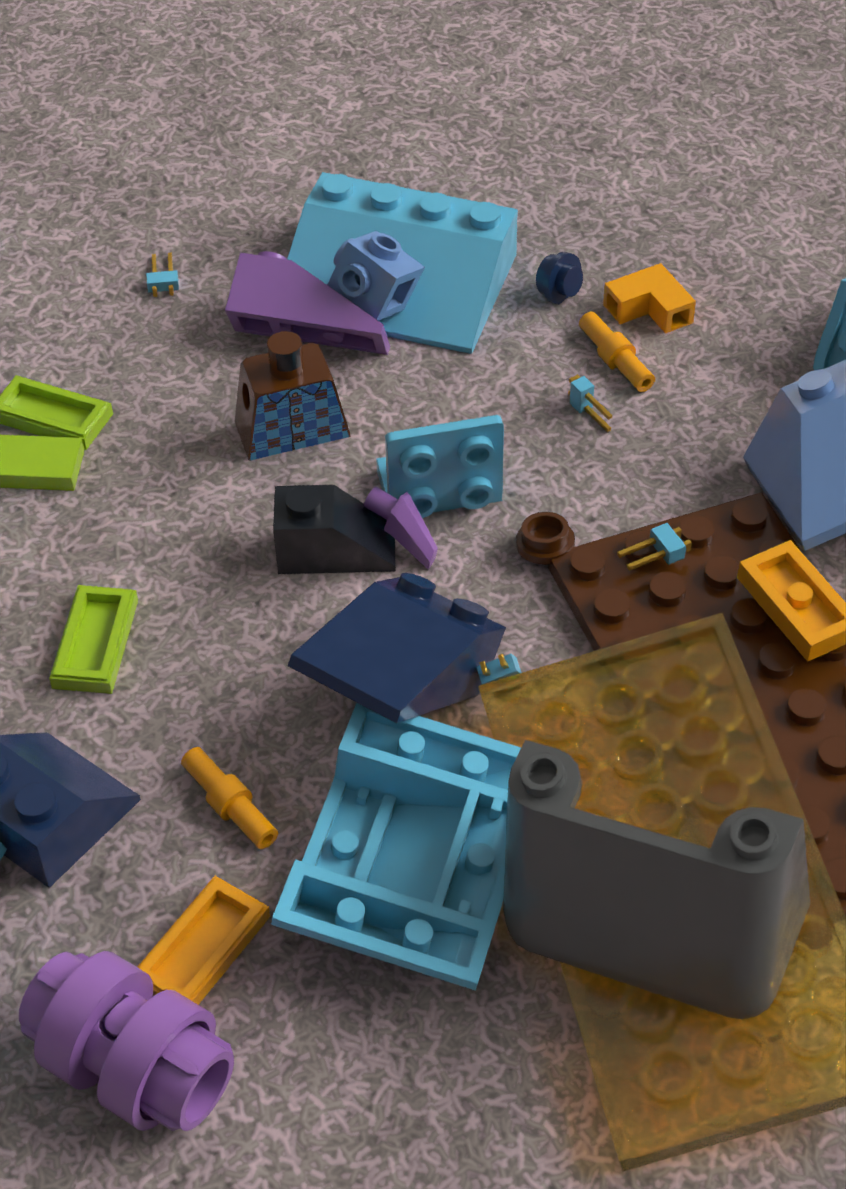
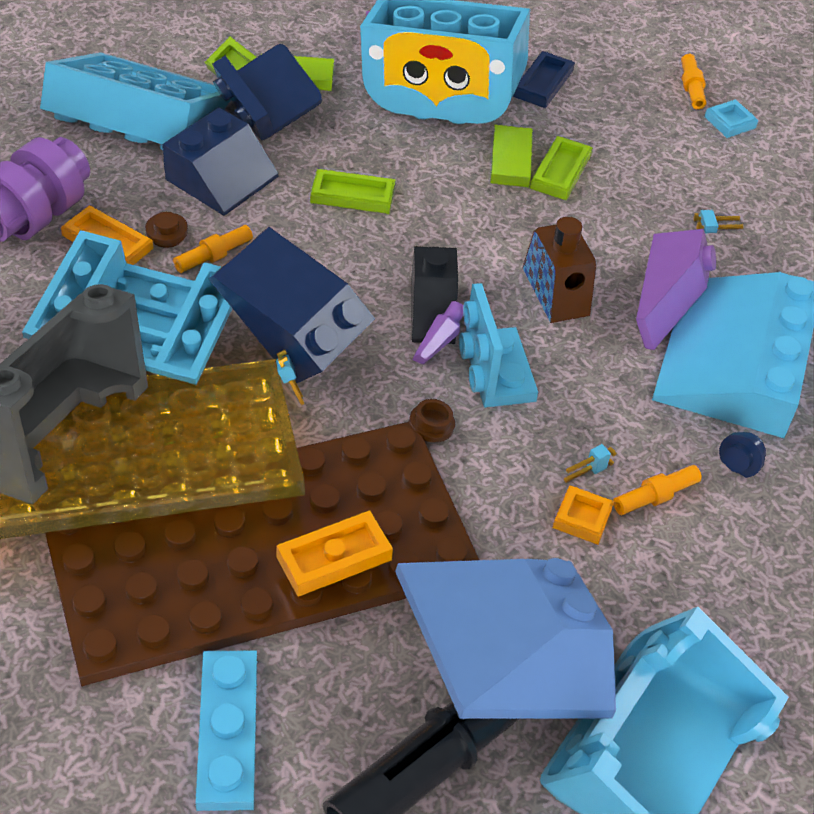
camera: 85 degrees right, 0 degrees up
(186, 861) = (166, 229): none -> reddish brown plate
(375, 274) = (694, 309): medium blue brick -> none
(651, 293) = (732, 519): light orange piece -> none
(659, 414) = (583, 514): none -> light orange tile
(665, 541) = (408, 482): piece -> none

